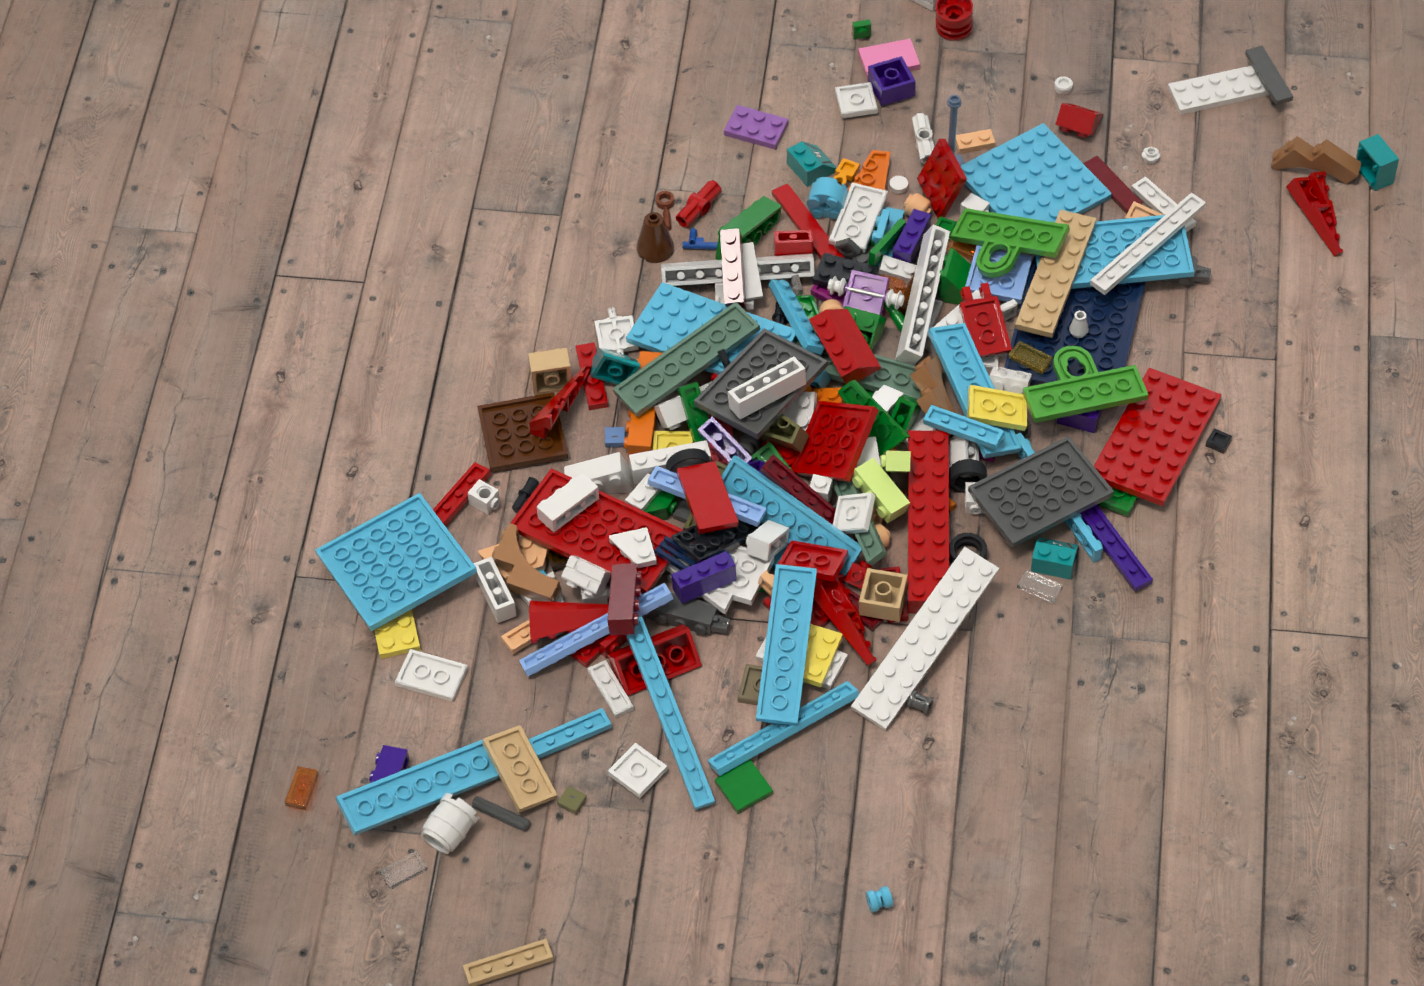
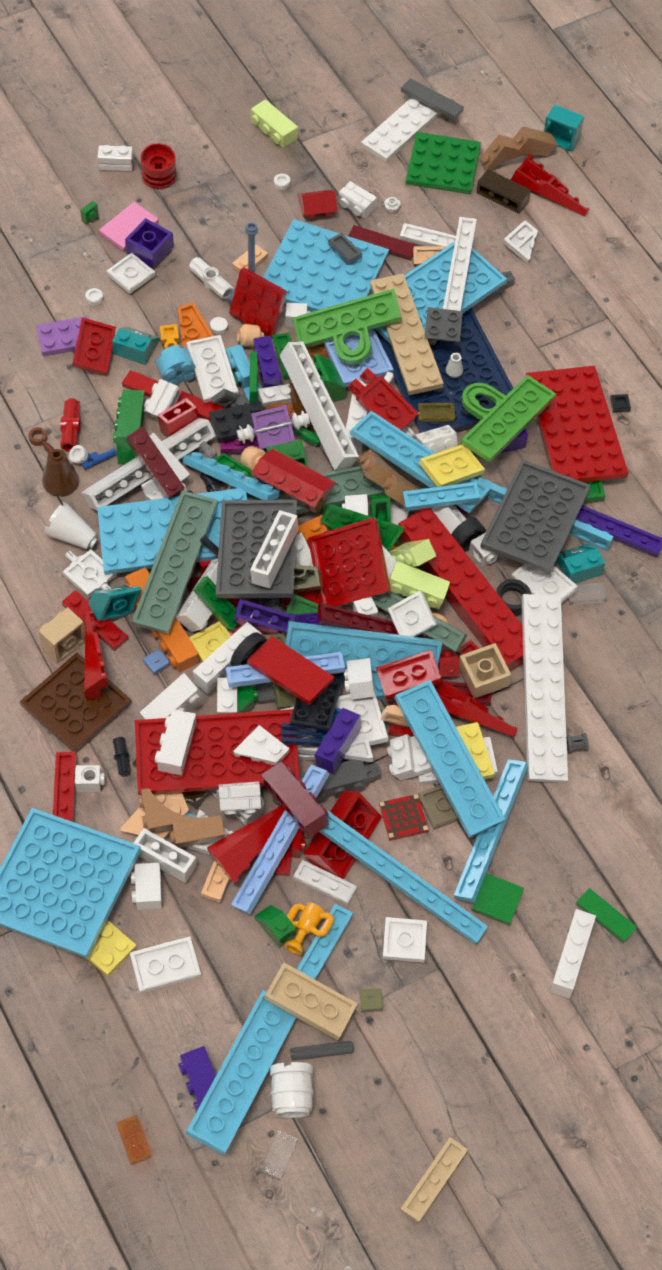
camera: 40 degrees left, 5 degrees up
(463, 606) = (147, 885): none -> white brick
(542, 698) = (276, 925): none -> green slope
(569, 707) = (308, 921): none -> light orange piece
(627, 287) = (71, 528): none -> white cone
(685, 232) = (78, 454): none -> white tile
(718, 676) = (403, 817): none -> tile
(754, 630) = (407, 758): none -> white plate
(768, 864) = (572, 953): none -> white brick
(769, 146) = (93, 346): none -> red plate
(793, 219) = (163, 397): none -> white brick
(808, 105) = (94, 297): none -> white tile
(826, 854) = (606, 915): none -> green tile
(1012, 562) = (546, 584): none -> white tile
(1066, 172) = (344, 248): none -> dark grey tile
(1092, 281) = (443, 325): none -> dark grey hinge
(1097, 28) = (274, 123): none -> yellowish green brick
(1118, 135) = (357, 200): none -> white brick
(1234, 140) = (443, 163): none -> green plate
(1249, 247) = (522, 240): none -> white wing
(1269, 193) = (503, 191): none -> dark brown brick

